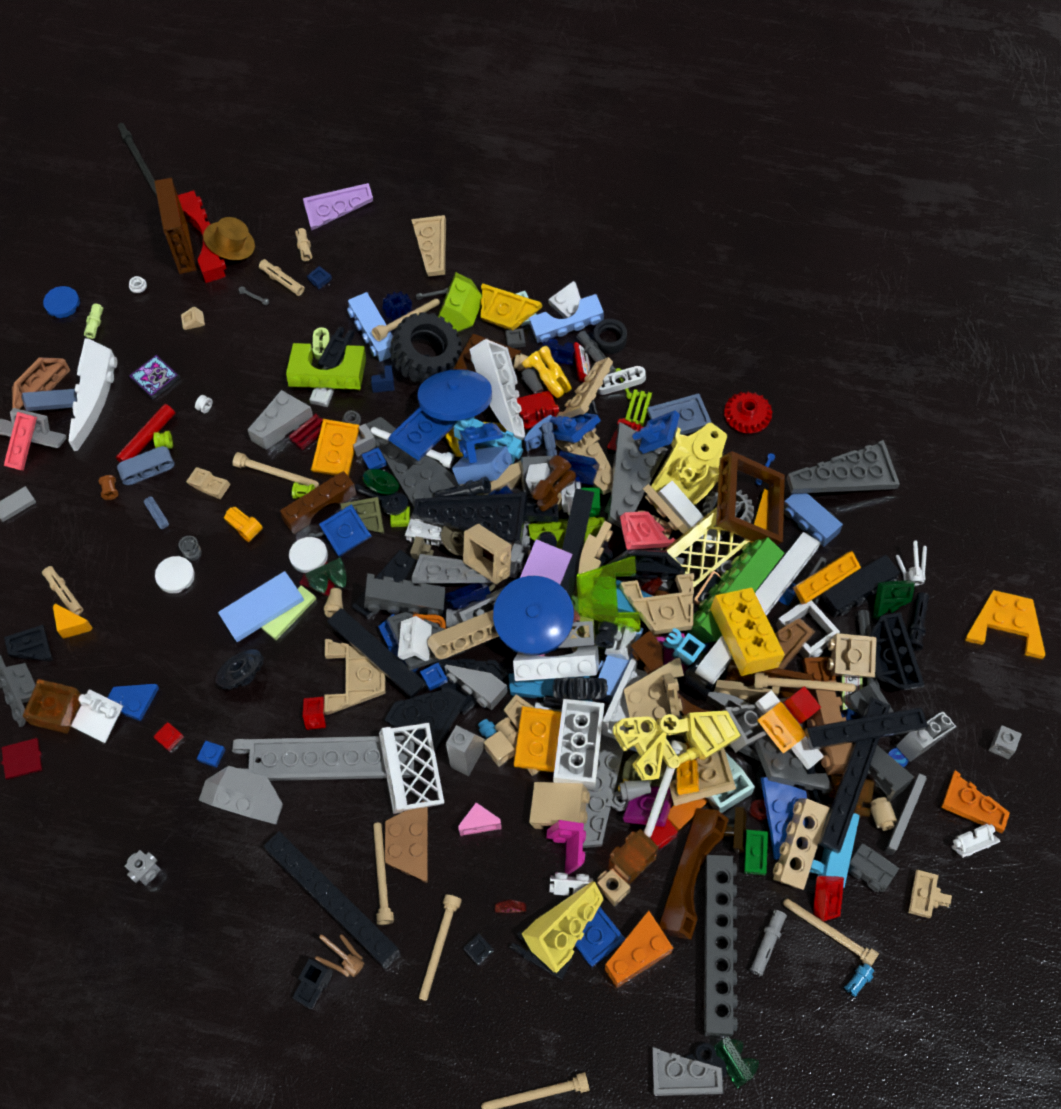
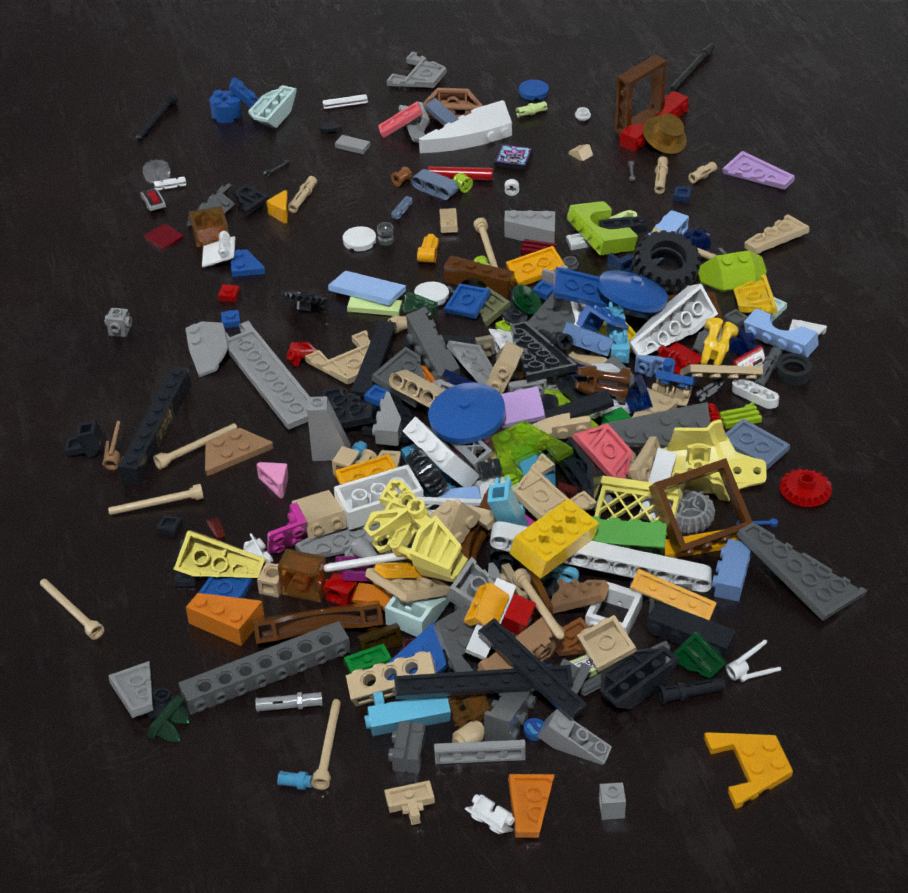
camera: 60 degrees right, 20 degrees down
(394, 773) = (278, 407): white fence -> none
(414, 638) = (397, 363): white panel -> none
(549, 439) = (650, 373): sand blue axle -> none
(657, 432) = (705, 417): blue plate -> none
(828, 897) = (356, 722): red slope -> none

